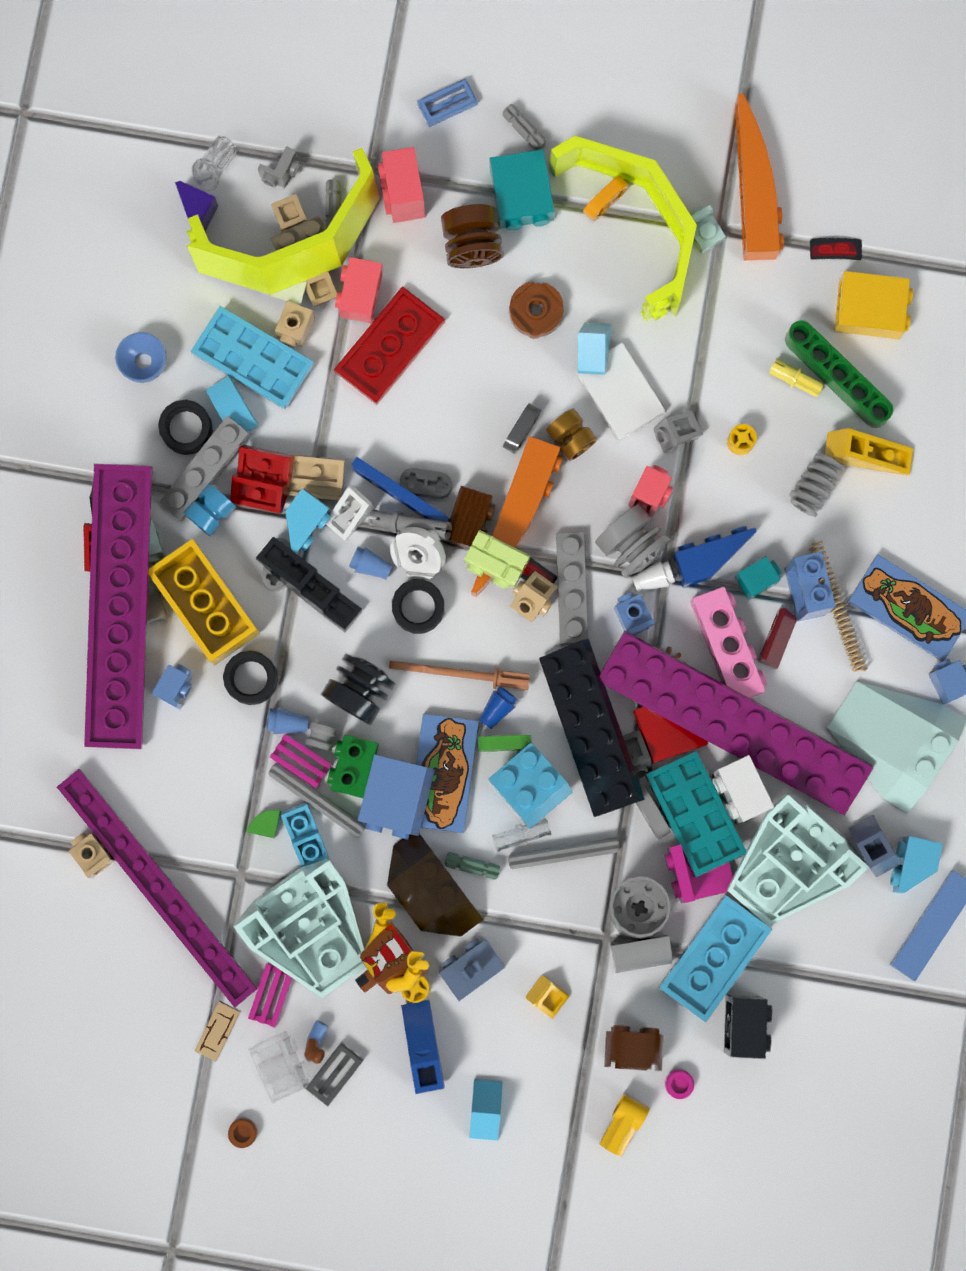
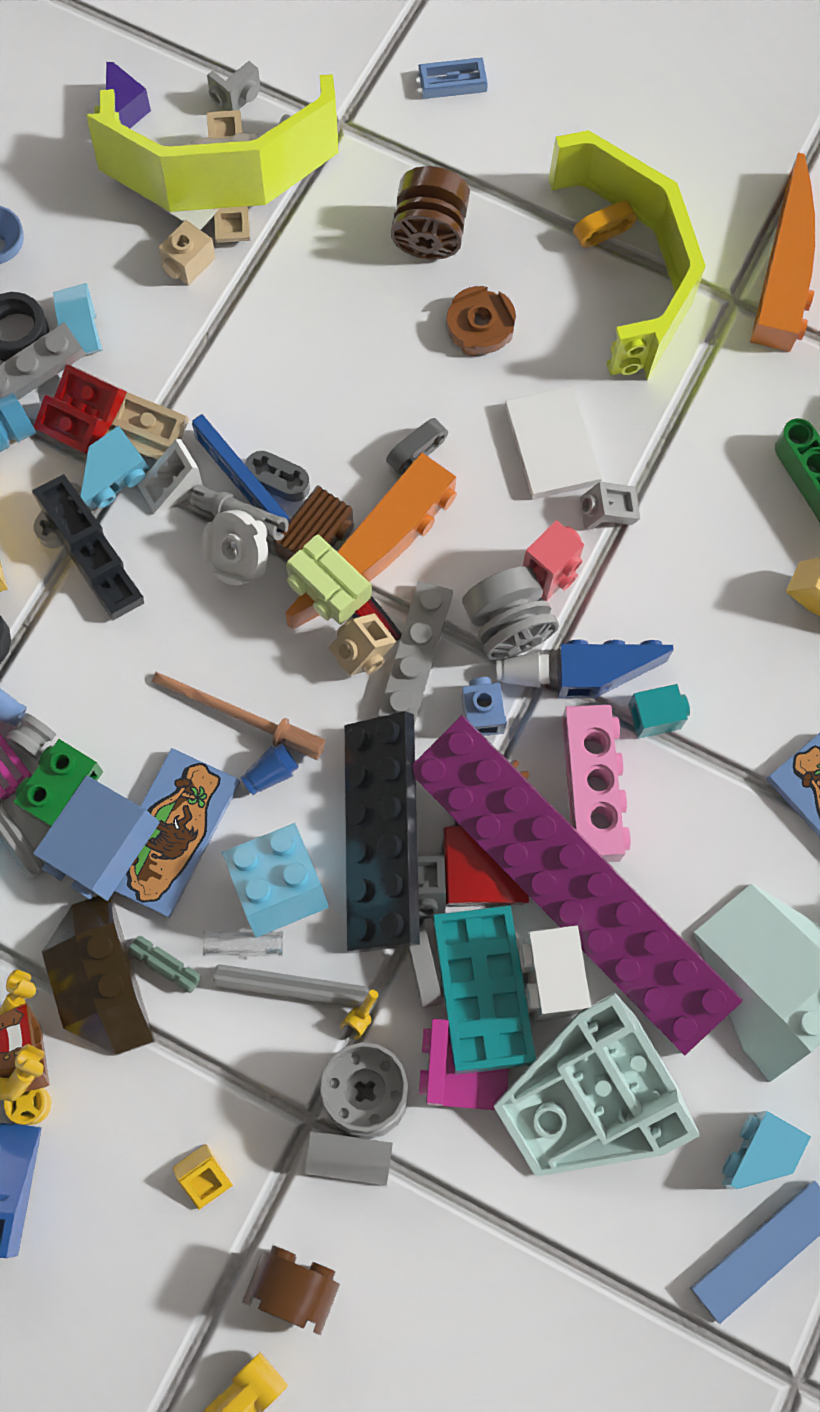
camera: 15 degrees right, 10 degrees down
(214, 161) = (153, 64): clear piece -> none
(252, 357) = (123, 275): medium azure plate -> none
(358, 688) = (98, 687): black wheel -> none
(360, 290) = (277, 236): coral brick -> none
(368, 563) = (171, 545): medium blue cone -> none
(389, 345) = (291, 311): red tile -> none
(402, 182) = (367, 136): coral brick -> none
(417, 585) = (207, 589): black tyre -> none
(471, 969) = (112, 1102): sand blue brick -> none
(486, 1109) = (60, 1310): medium azure slope -> none
(503, 743) = (259, 815): bright green beam -> none
(522, 189) = (507, 186): teal brick -> none
(524, 127) = (533, 126): light grey axle -> none
(571, 434) = (475, 467): pearl gold wheel -> none
(593, 348) = (535, 380): medium azure slope -> none
(617, 860) = (359, 1016): none -> yellow hand
(679, 1084) = (342, 1364): dark pink tile -> none
(707, 230) = (714, 292): light aqua bracket -> none
(715, 958) = (448, 1198): medium azure plate -> none
(745, 434) = (689, 531): yellow wheel -> none
(747, 1026) = (460, 1312): black brick -> none
(777, 638) = (662, 796): dark red slope -> none
(796, 378) = (776, 488): light yellow axle -> none
(807, 594) = (720, 747): medium blue window -> none
(814, 484) = (766, 617): light grey piece -> none
(839, 618) = (753, 780): tan piece -> none
(874, 846) = (715, 1111): sand blue slope -> none

